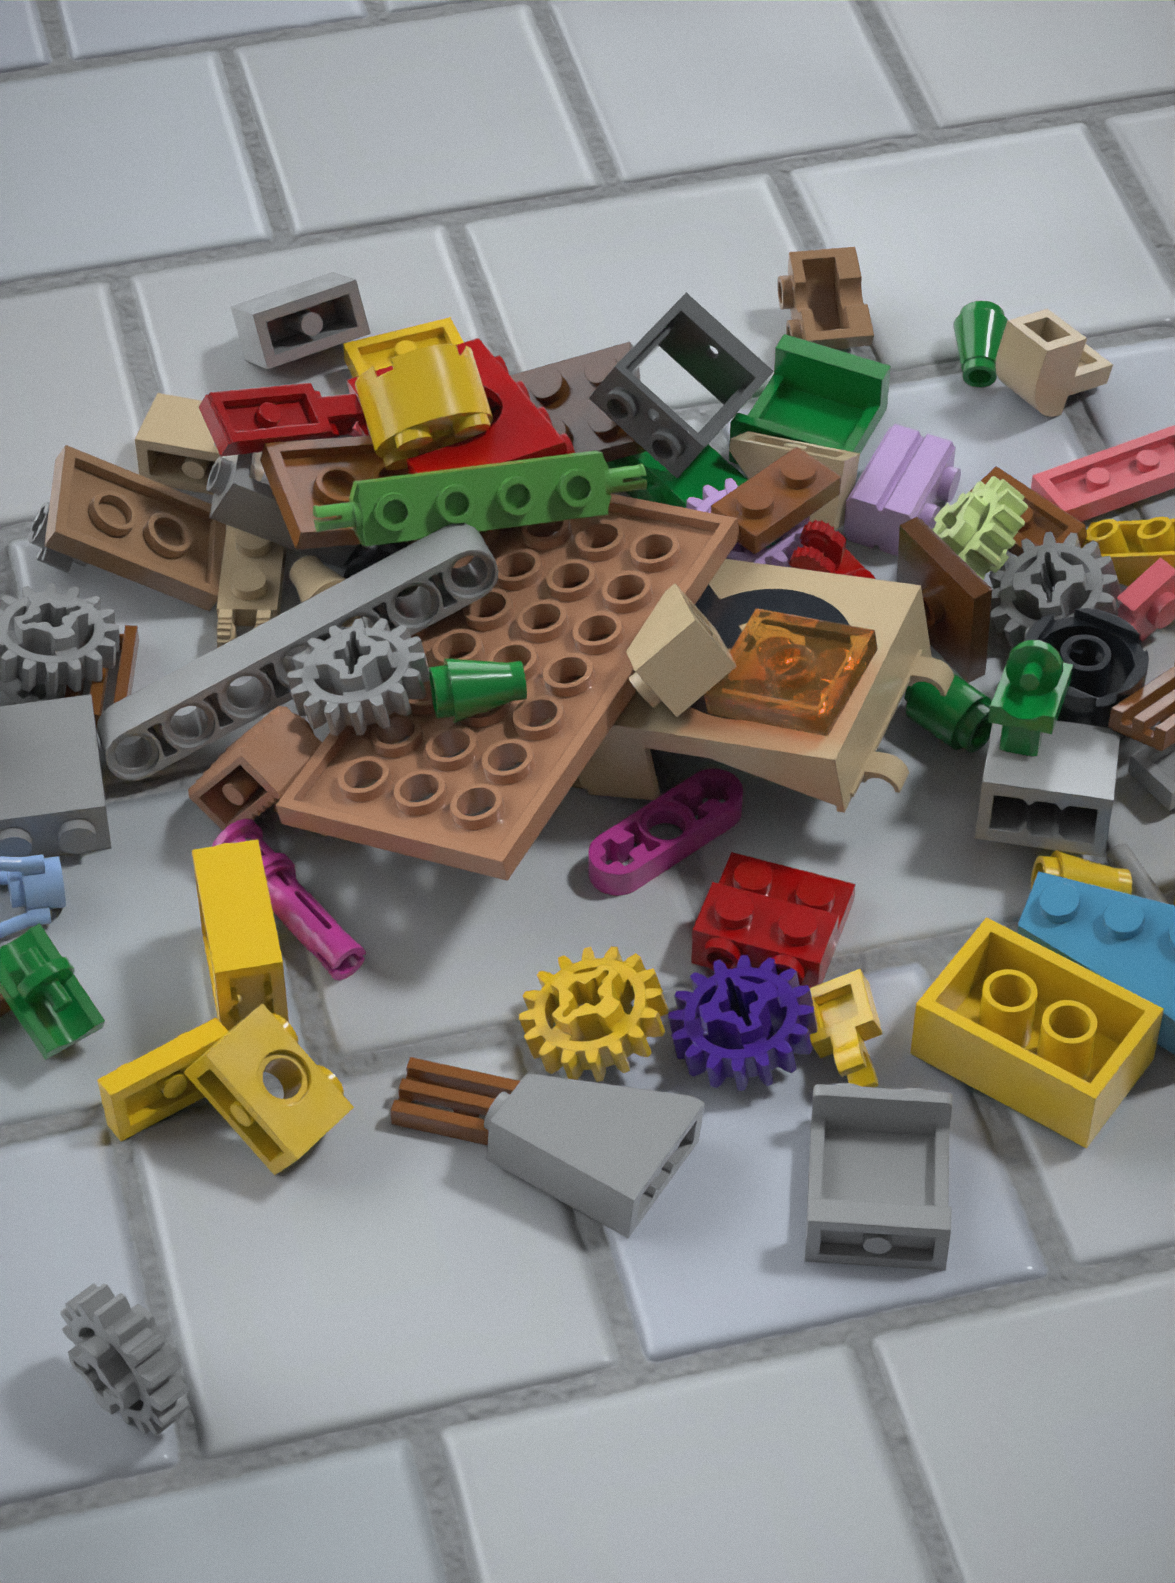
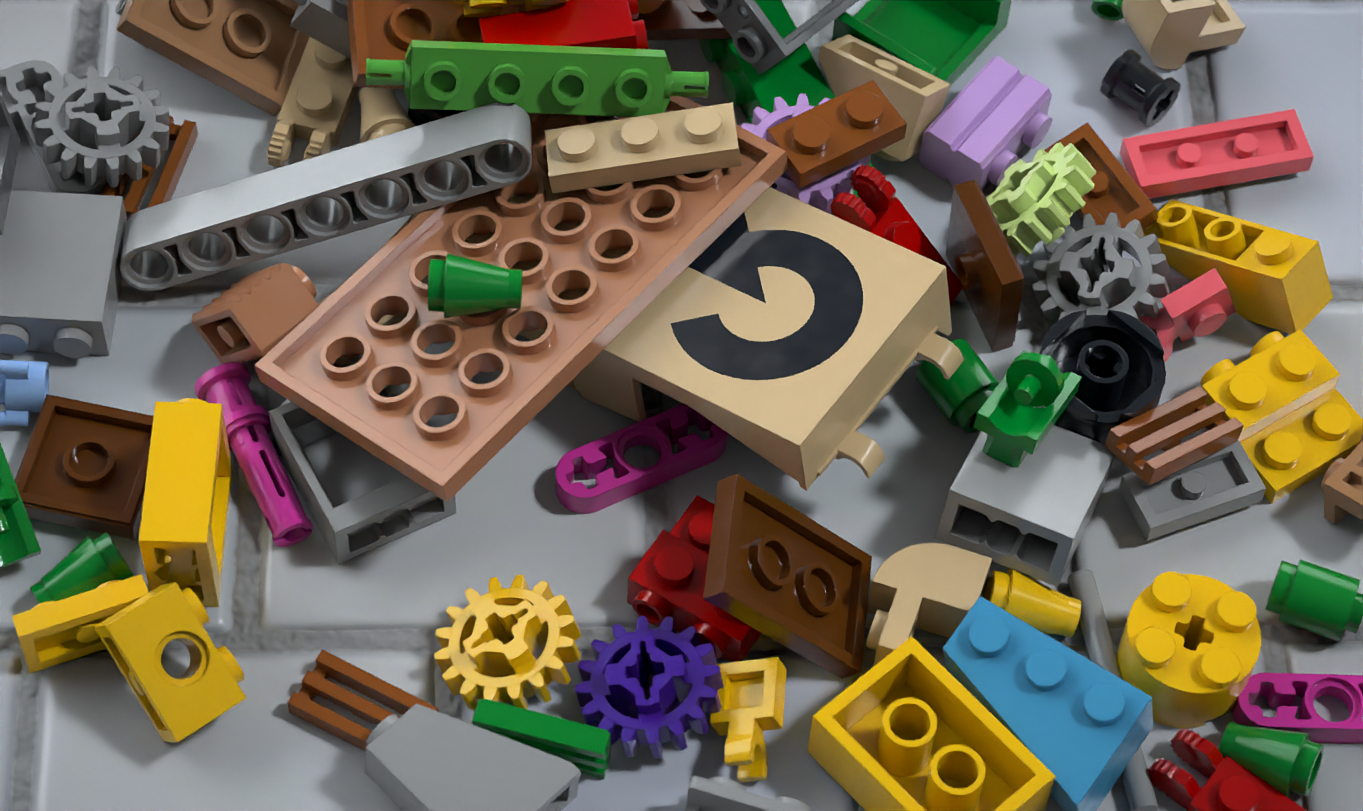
camera: 10 degrees right, 10 degrees up
(131, 940) = (86, 466): none -> reddish brown plate
(152, 1027) = (83, 570): none -> green cone
(359, 676) = (367, 247): light grey gear -> none
(415, 936) = (366, 520): none -> light grey window
(598, 542) = (642, 147): none -> tan plate
(677, 654) = (679, 293): tan slope -> none
(688, 1078) = (572, 741): none -> green tile
(793, 672) = (784, 340): clear orange plate -> none
(849, 893) = (788, 576): none -> reddish brown plate
(979, 882) = (923, 589): none -> tan brick
(1046, 446) = (1158, 93): none -> black bush

